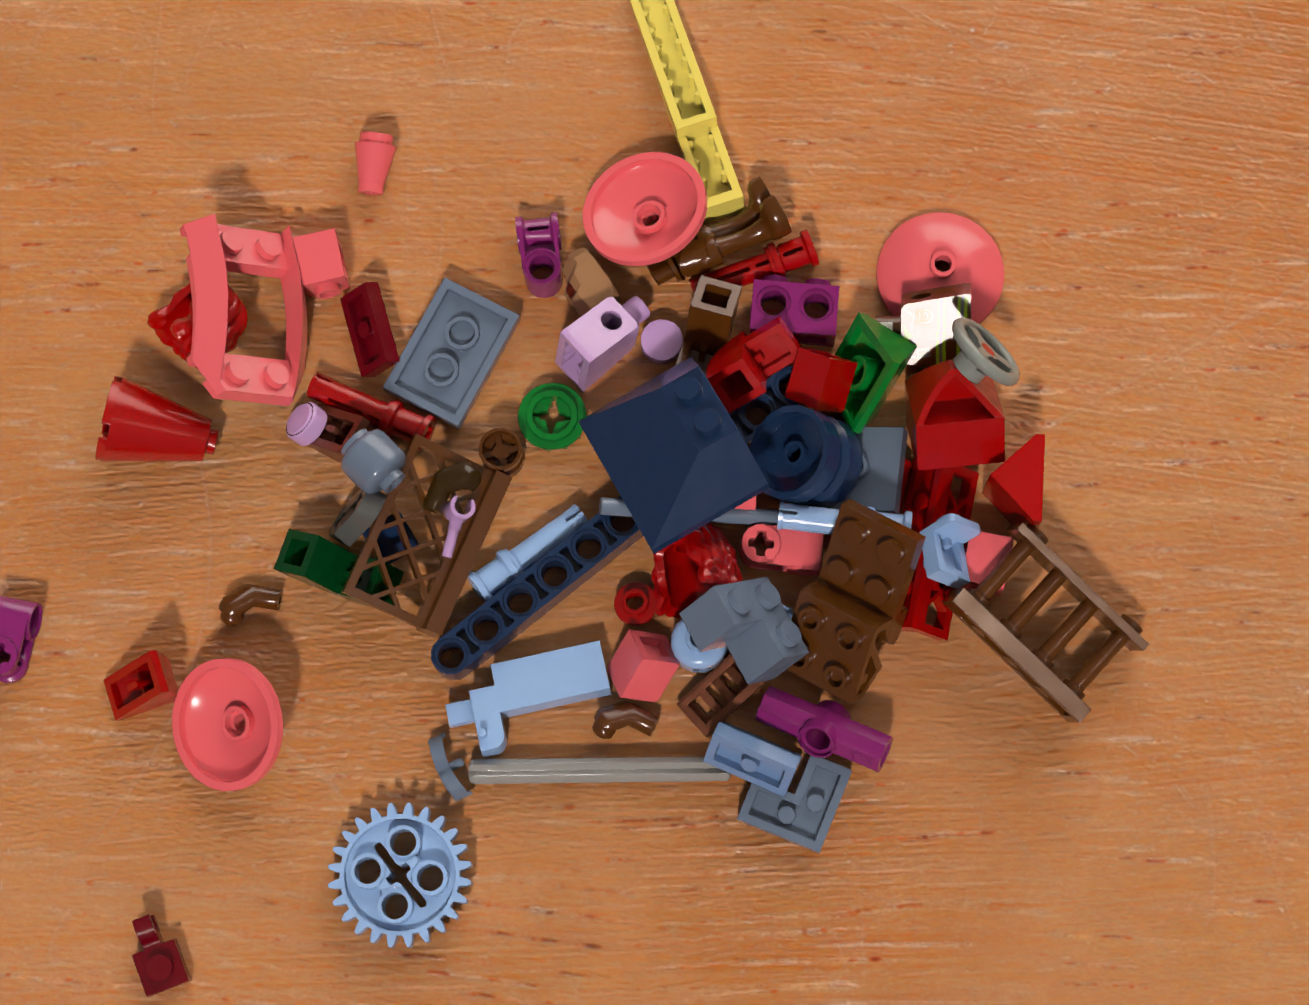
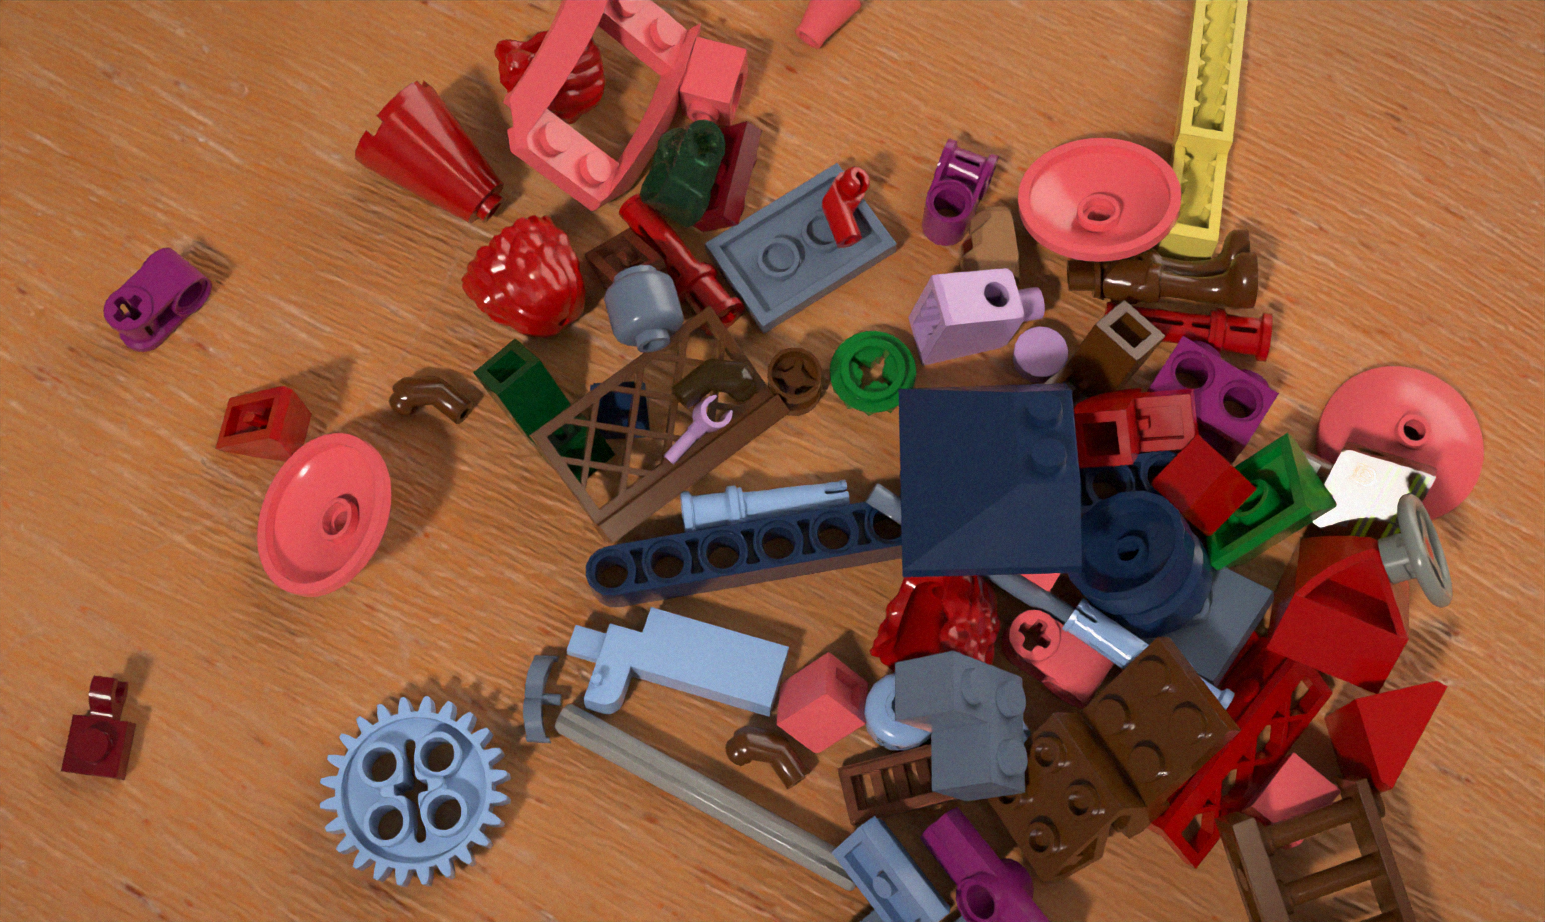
camera: 25 degrees right, 5 degrees down
(273, 480) = (528, 278): none -> red hair
(306, 423) = (600, 239): lavender piece -> none
(338, 347) = (684, 171): none -> clear green piece
(357, 517) = (596, 364): dark grey beam -> none
(464, 307) = (842, 201): none -> red arm
(639, 616) = (849, 644): red plate -> none
(945, 550) = (1250, 760): light blue bracket -> none

